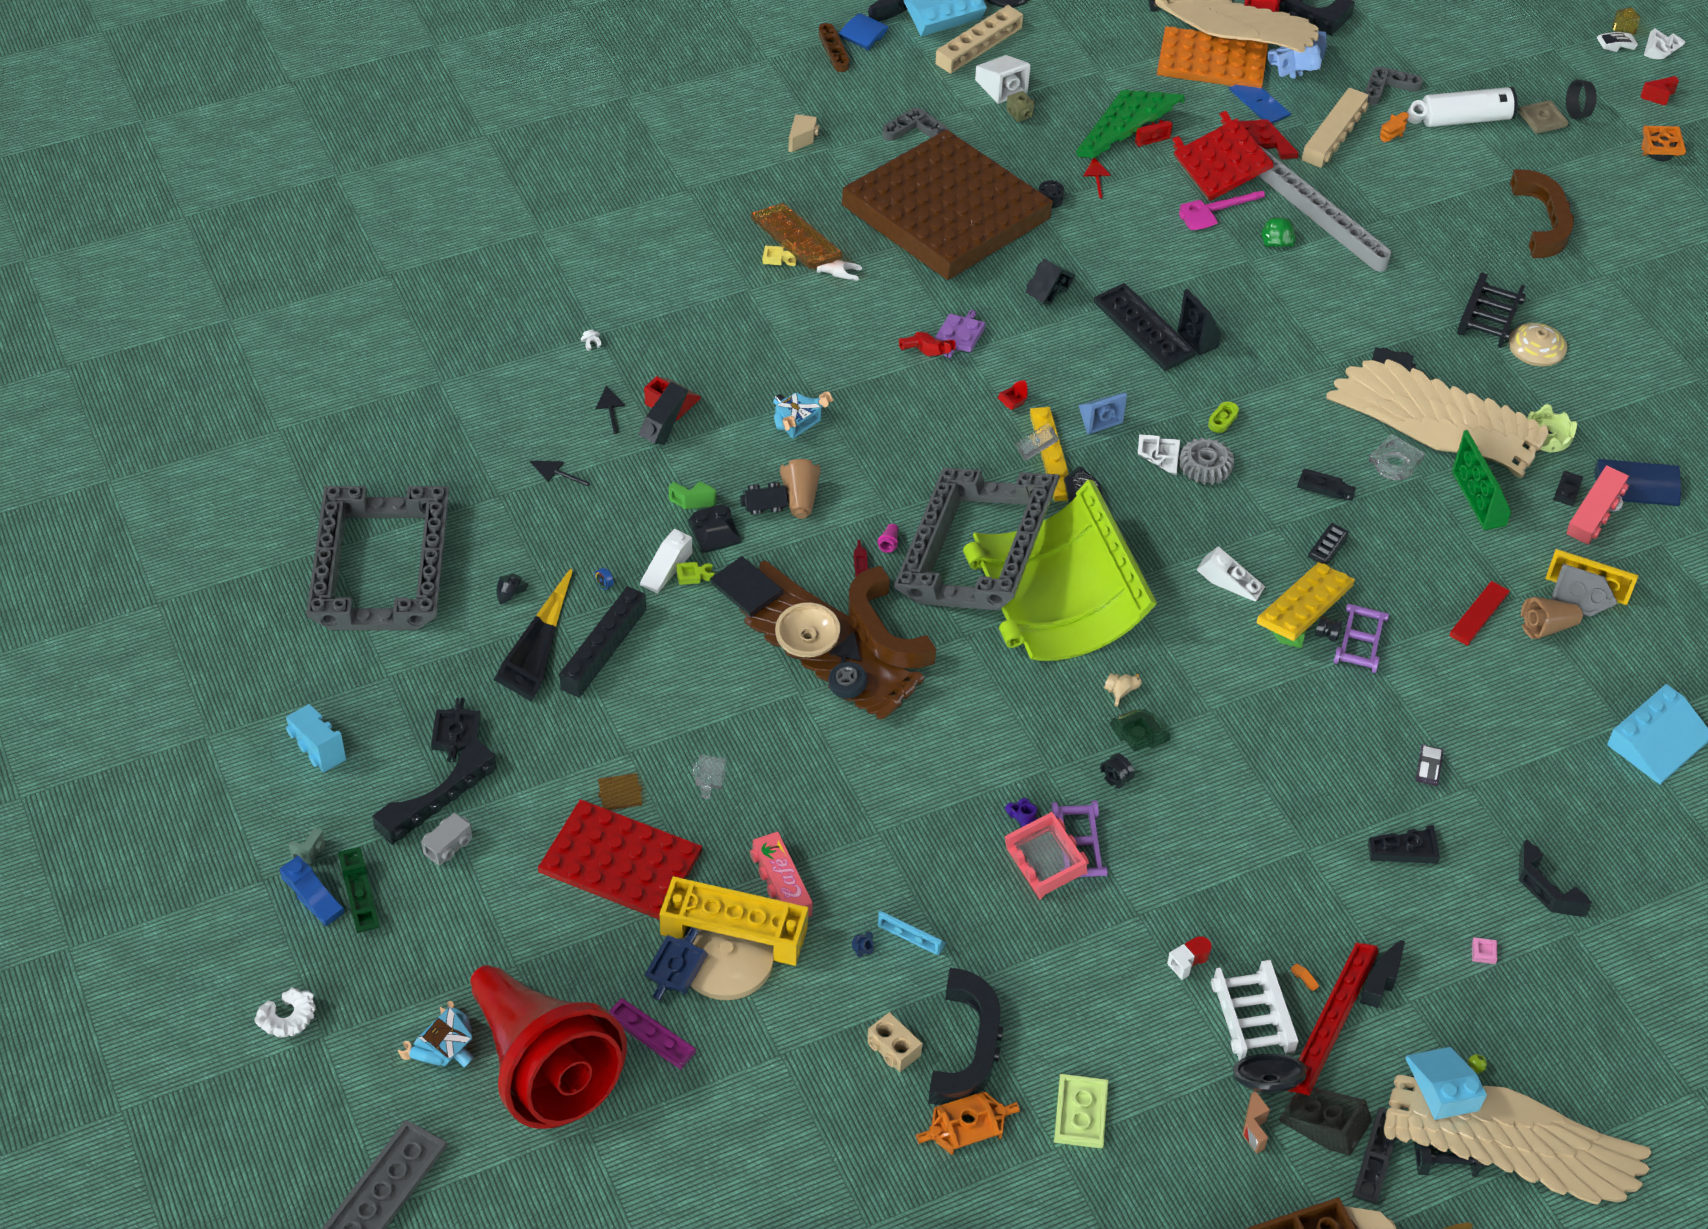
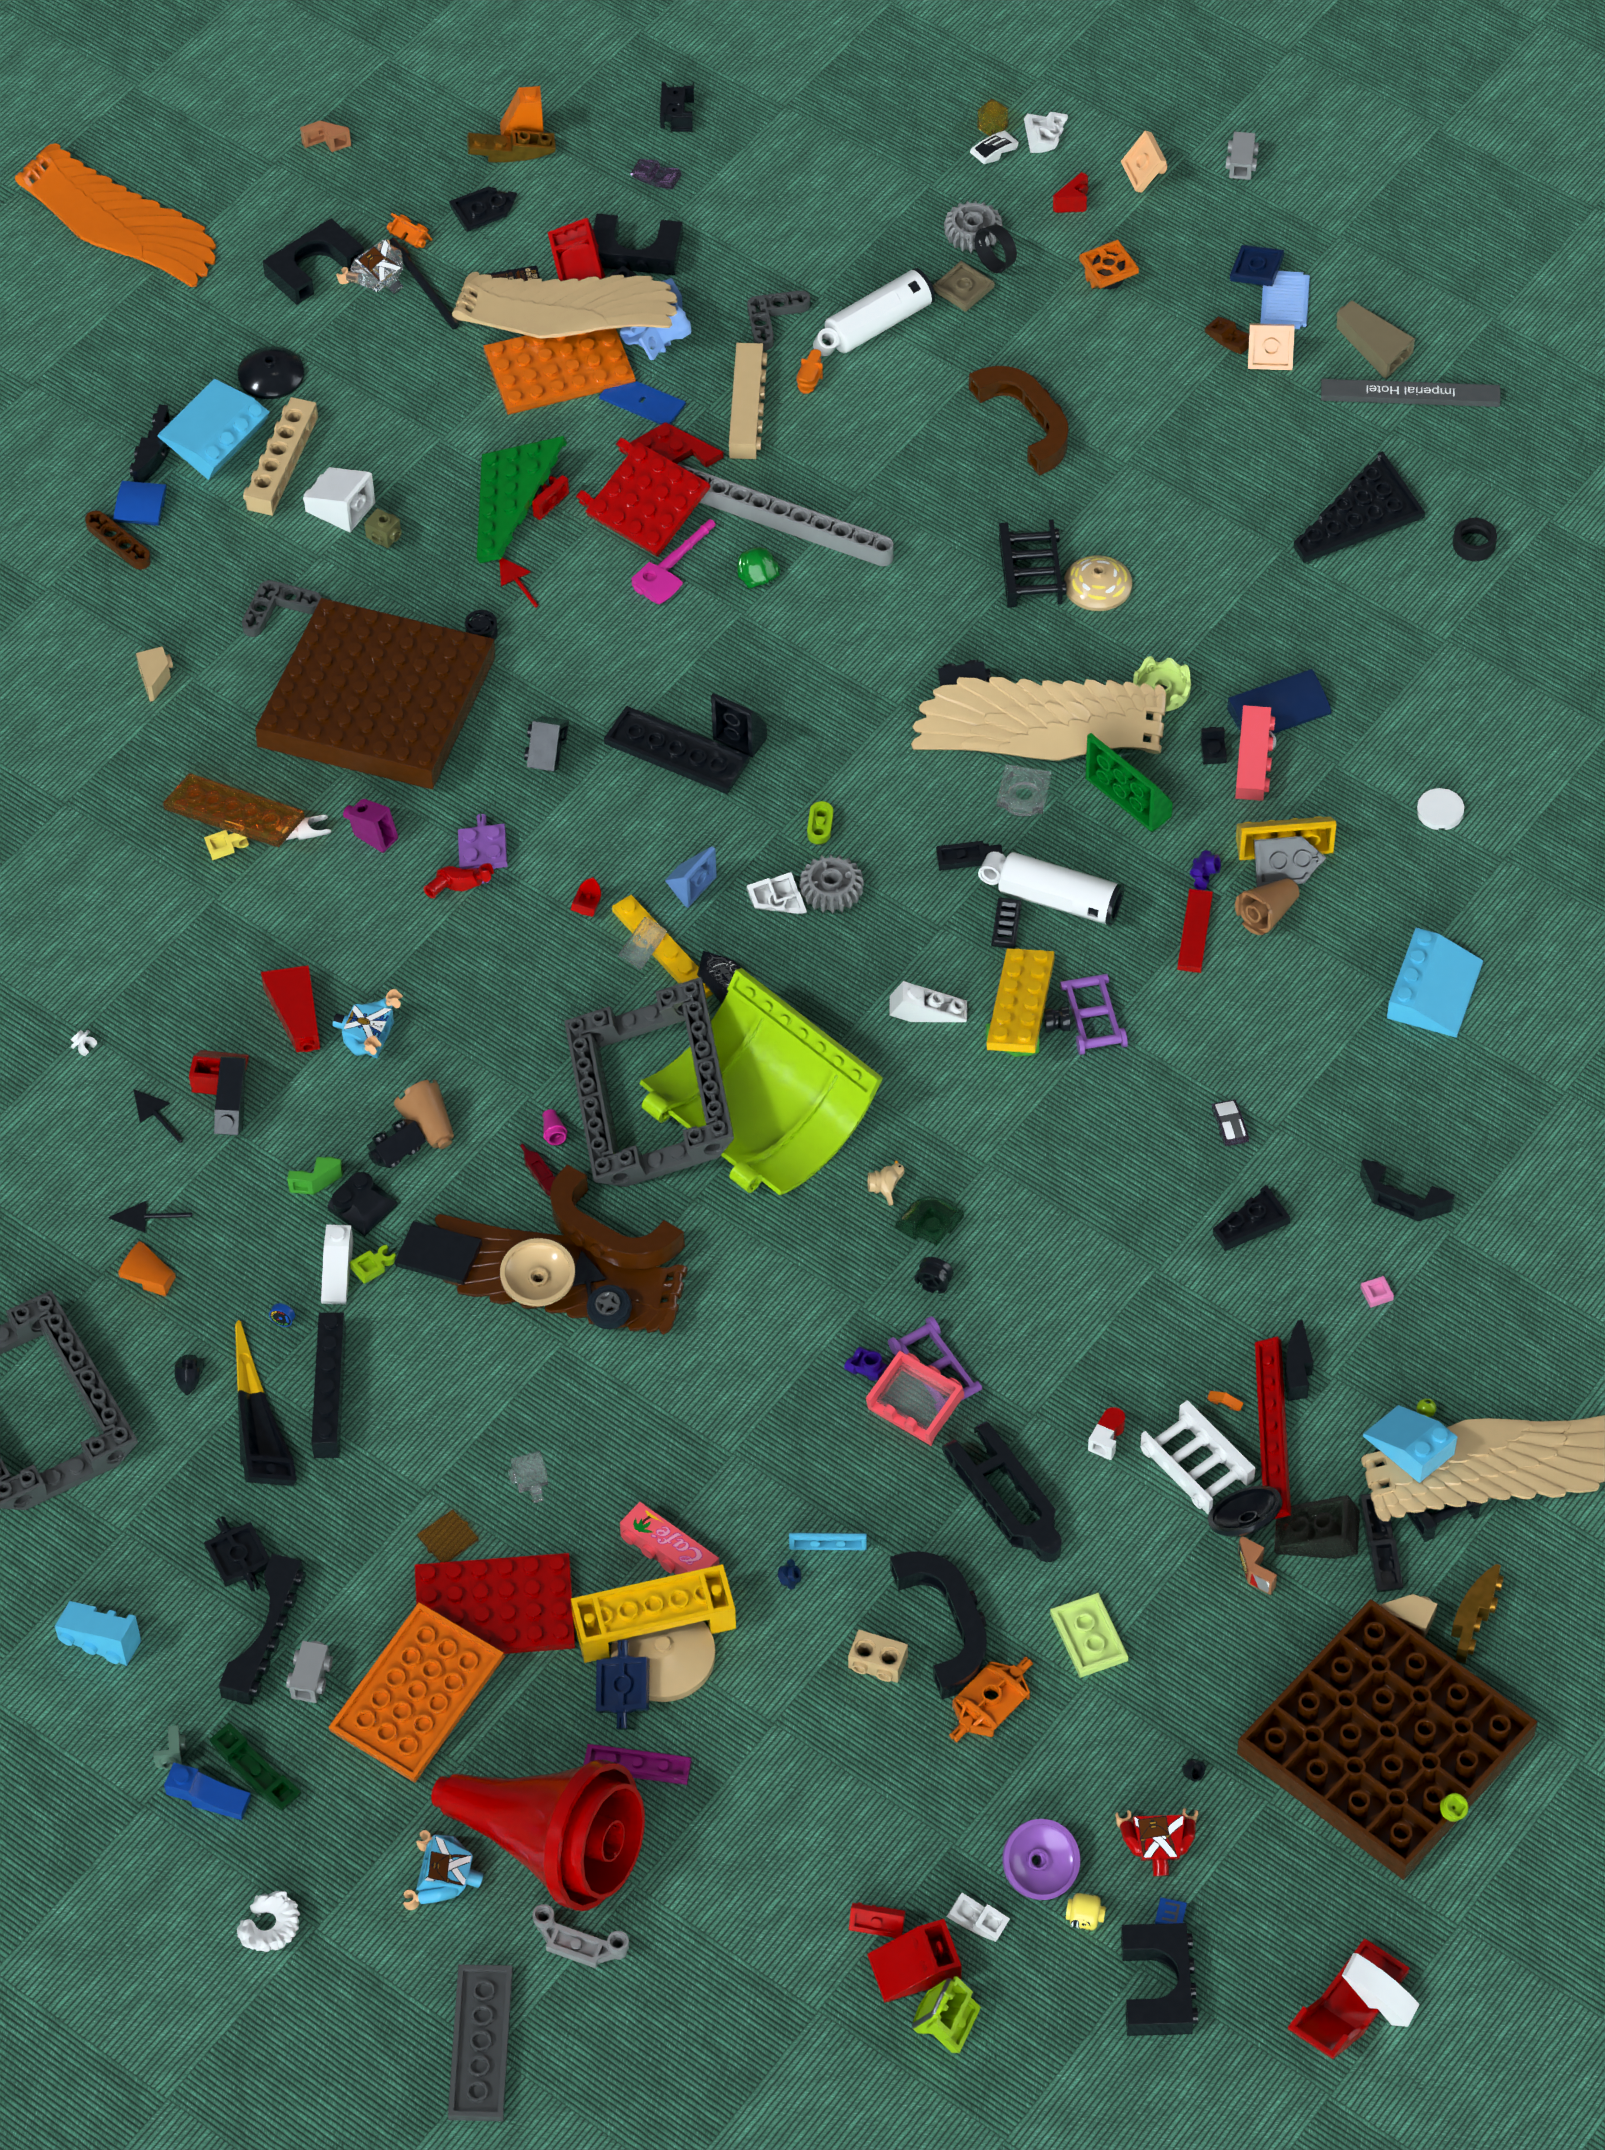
camera: 25 degrees left, 5 degrees up
(507, 1150) = (576, 1944): none -> light grey plate
(515, 893) = (416, 1692): none -> orange plate
(530, 506) = (147, 1269): none -> orange slope
(756, 377) = (293, 1002): none -> red slope
(886, 279) = (372, 824): none -> magenta torso
(1083, 1009) = (1040, 1535): none -> black piece
(1381, 533) = (1053, 886): none -> white piece
(1511, 570) = (1203, 867): none -> dark purple plate
(1563, 76) = (966, 220): none -> light grey gear

